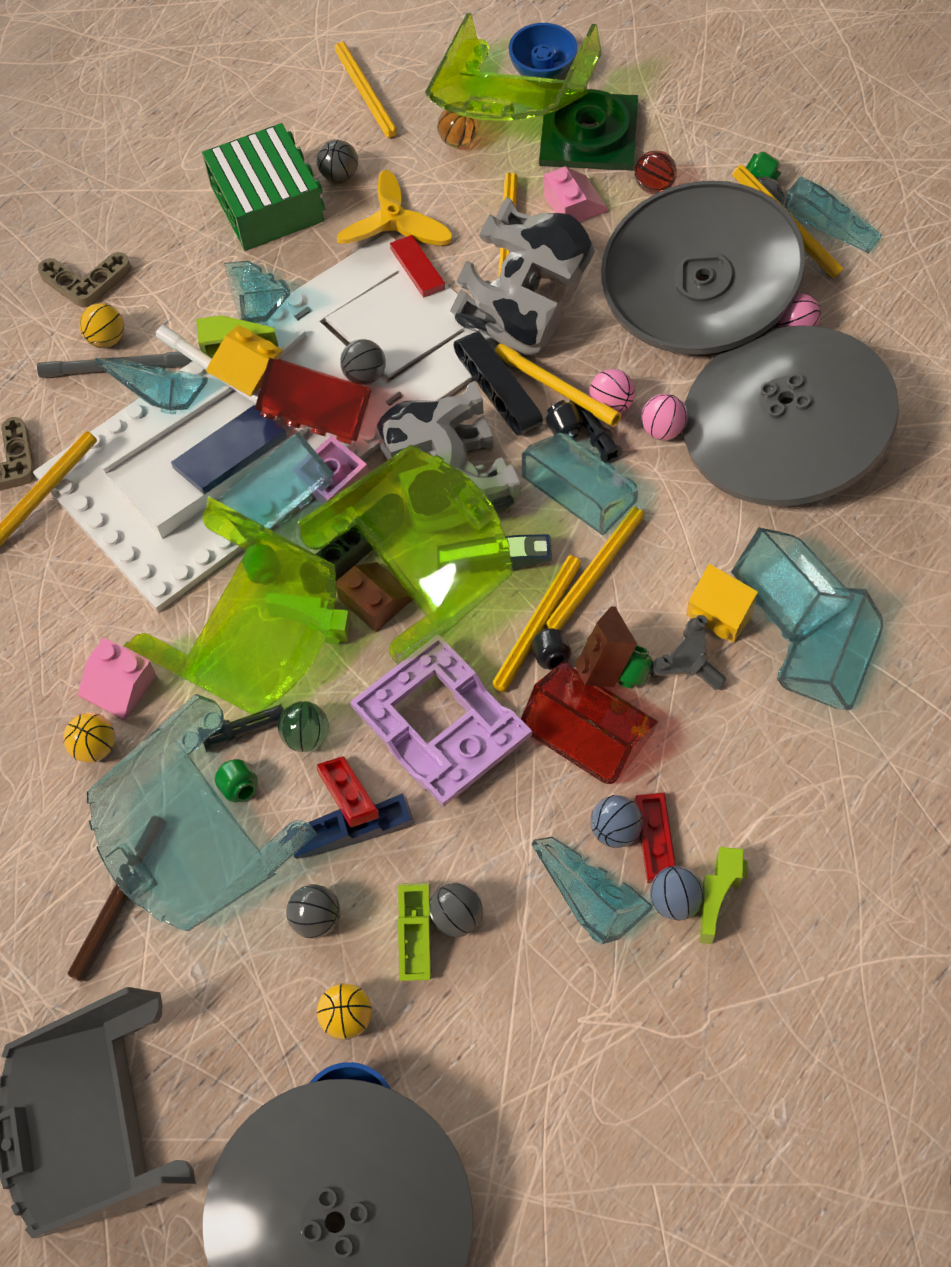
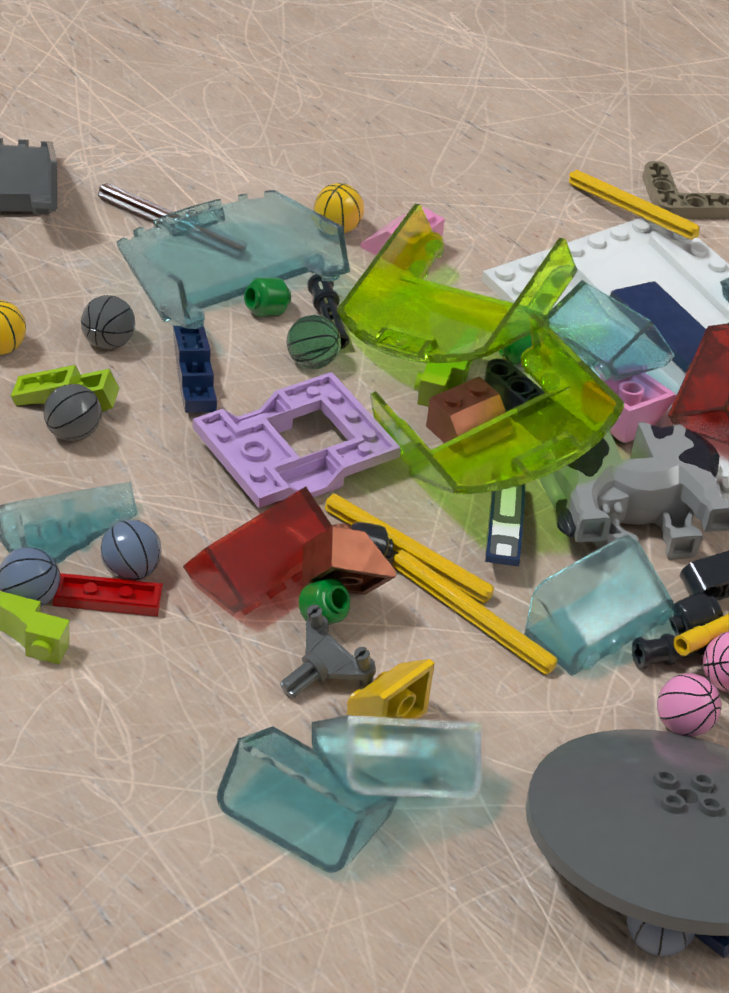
camera: 90 degrees right, 20 degrees down
(347, 791) = (230, 360): red tile -> none

